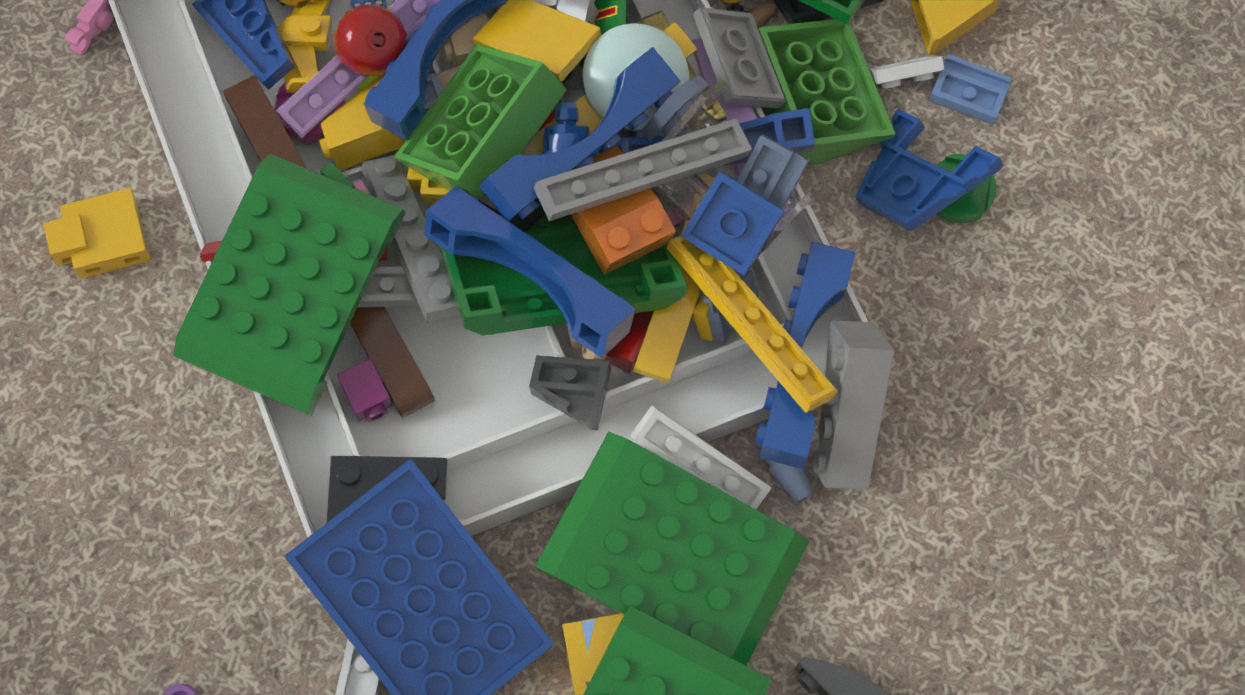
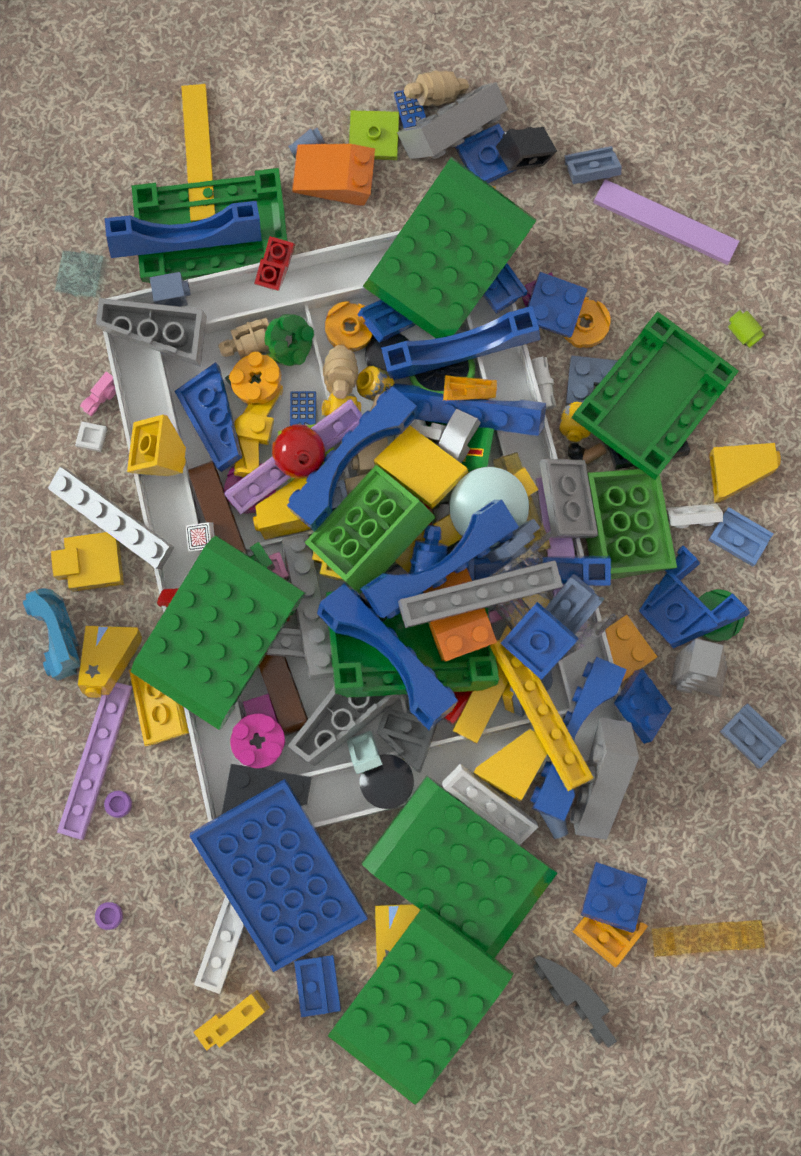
camera: 15 degrees right, 10 degrees up
(73, 347) = (62, 654): none -> dark azure slope
(84, 80) = (91, 436): none -> white tile
(123, 169) = (111, 518): none -> plate
(136, 351) = (105, 657): none -> yellow slope
(136, 495) = (94, 762): none -> lavender tile
(175, 66) = (156, 448): none -> yellow slope
(176, 548) = (118, 804): none -> medium lavender tile
(219, 411) = (158, 714): none -> yellow tile
(244, 166) = (199, 535): none -> tile
(367, 399) = (248, 753): none -> dark pink plate
(474, 381) = (336, 722): none -> light grey wedge
(515, 417) = (364, 752): none -> light aqua tile
(553, 449) = (387, 784): none -> black dish
(725, 399) = (514, 765): none -> yellow slope
(849, 233) = (628, 646): none -> light orange wing
(881, 301) = (643, 706): none -> blue plate
(892, 566) = (614, 897): none -> blue plate
(894, 618) = (608, 940): none -> light orange wing
(952, 242) = (700, 668): none -> light grey wedge
(1031, 601) = (708, 937): none -> clear yellow slope
(1037, 331) = (753, 736): none -> sand blue plate

